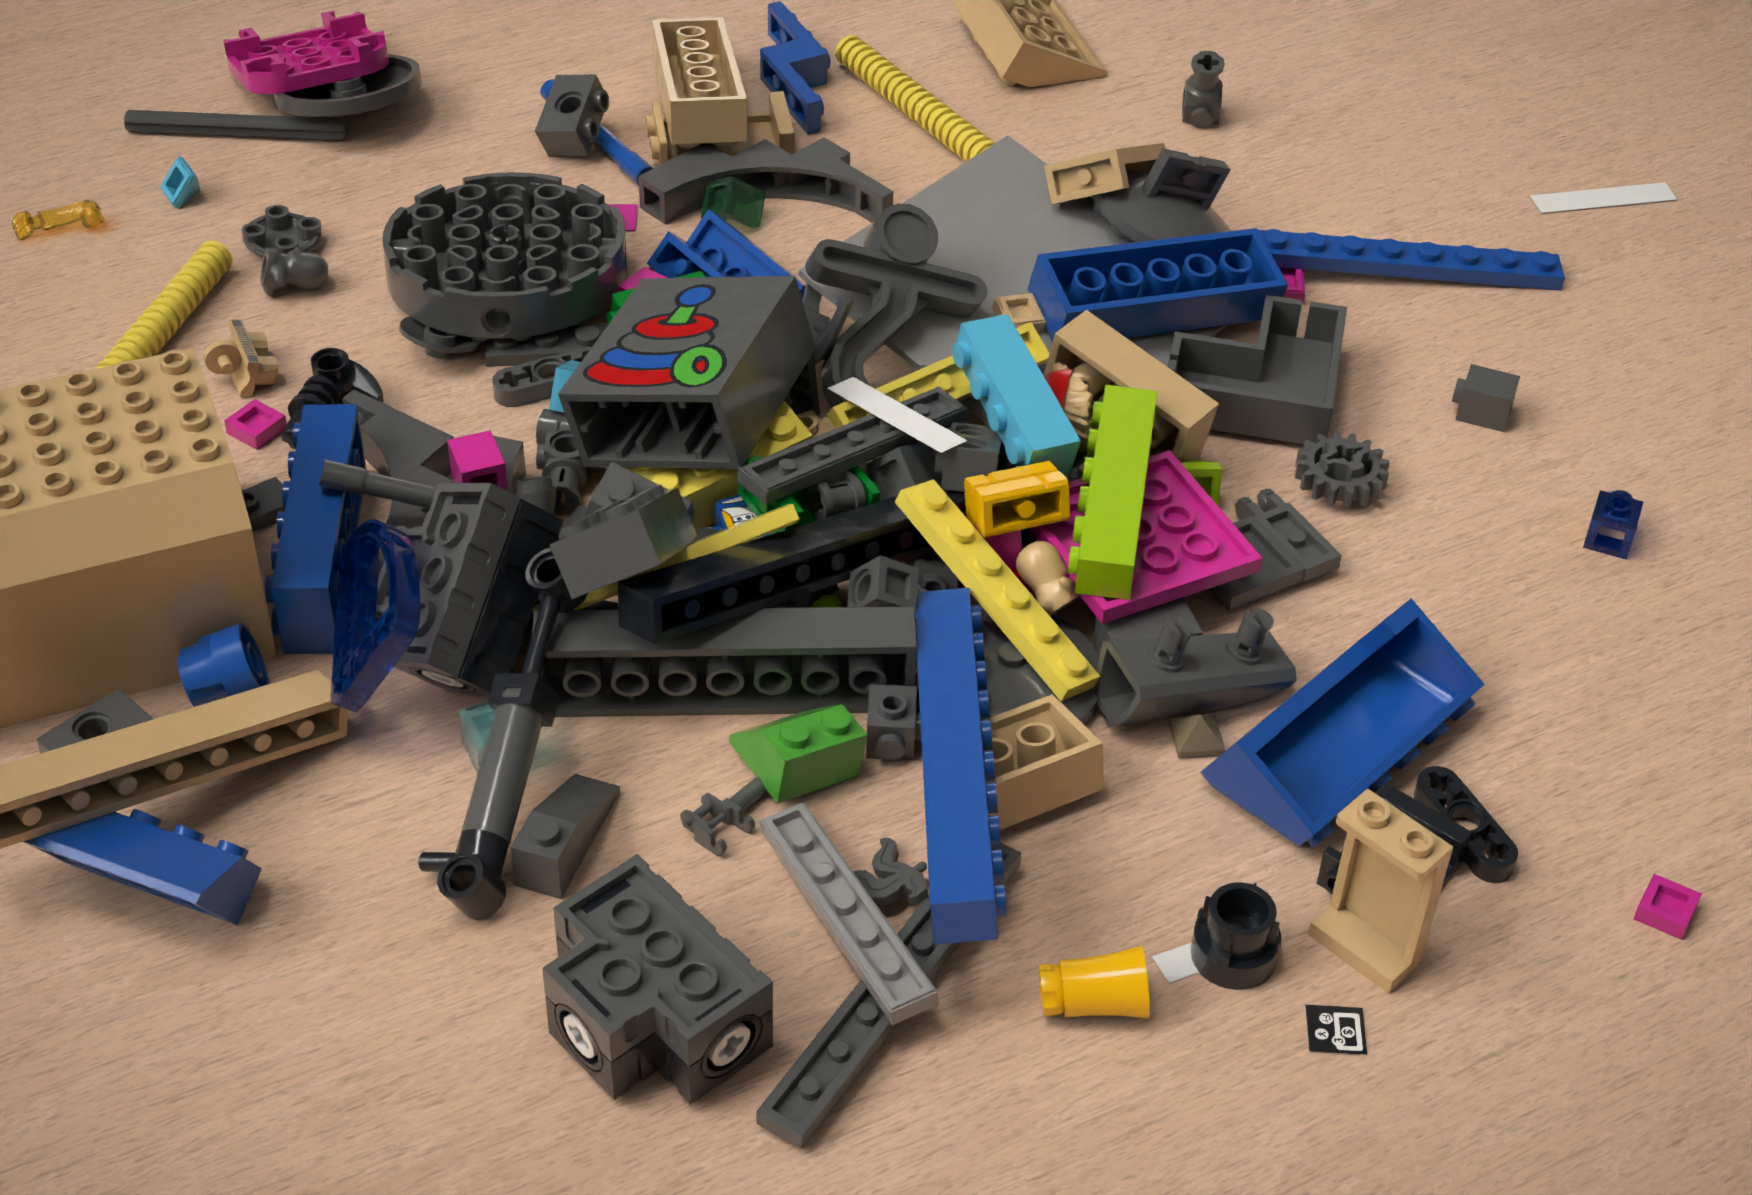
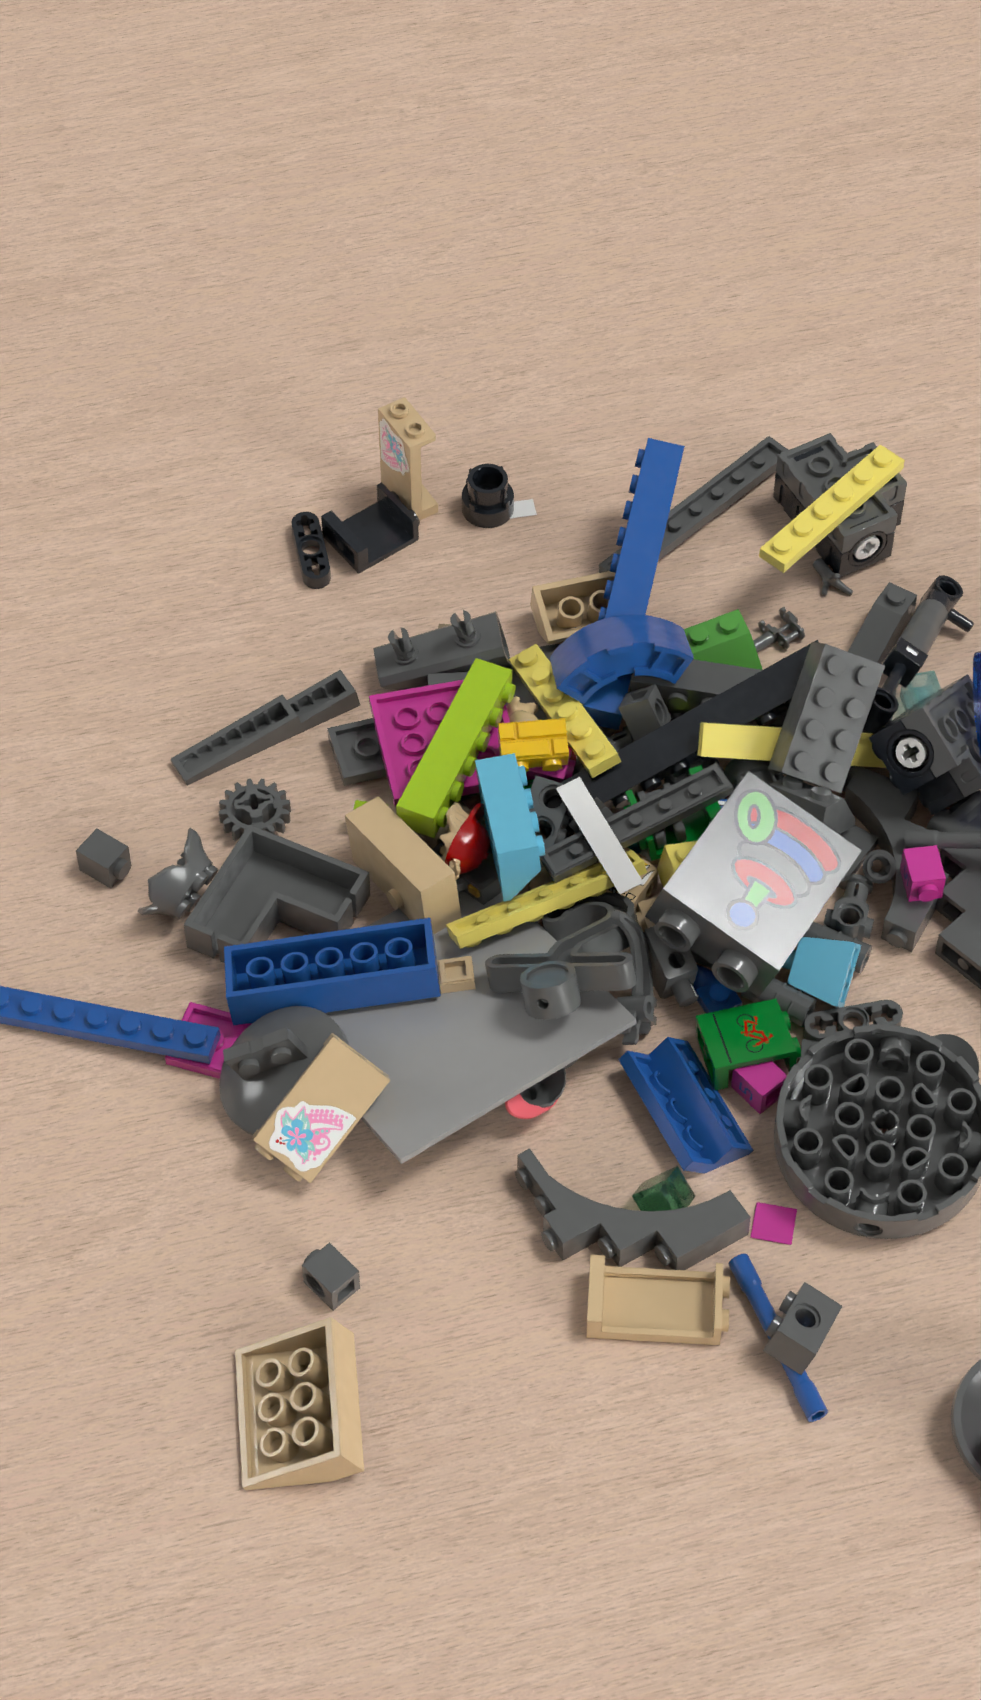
camera: 165 degrees left, 10 degrees up
(658, 890) = (831, 508): none -> light yellow plate
(699, 82) = (672, 1335): tan brick -> none
(794, 66) = (559, 1396): blue bracket -> none
(849, 914) = (714, 544): light grey tile -> none
(897, 877) = (685, 562): dark grey piece -> none
(911, 98) = (450, 1315): light yellow piece -> none
(933, 625) = (617, 648): none -> blue panel
(1042, 111) = (330, 1276): none -> dark grey brick
(1096, 985) = (581, 483): yellow plant -> none
(1203, 90) = (166, 1257): dark grey connector -> none
(1291, 532) = (321, 766): dark grey hinge -> none
(1336, 1029) = (447, 459): black sticker -> none
(1348, 727) = (356, 608): blue windscreen -> none
(1377, 579) = (267, 727): none -> dark grey slope
(1378, 357) = (176, 886): none -> dark grey brick
(1617, 512) = (79, 733): clear blue brick -> none
(1667, 906) = (217, 485): dark pink tile -> none

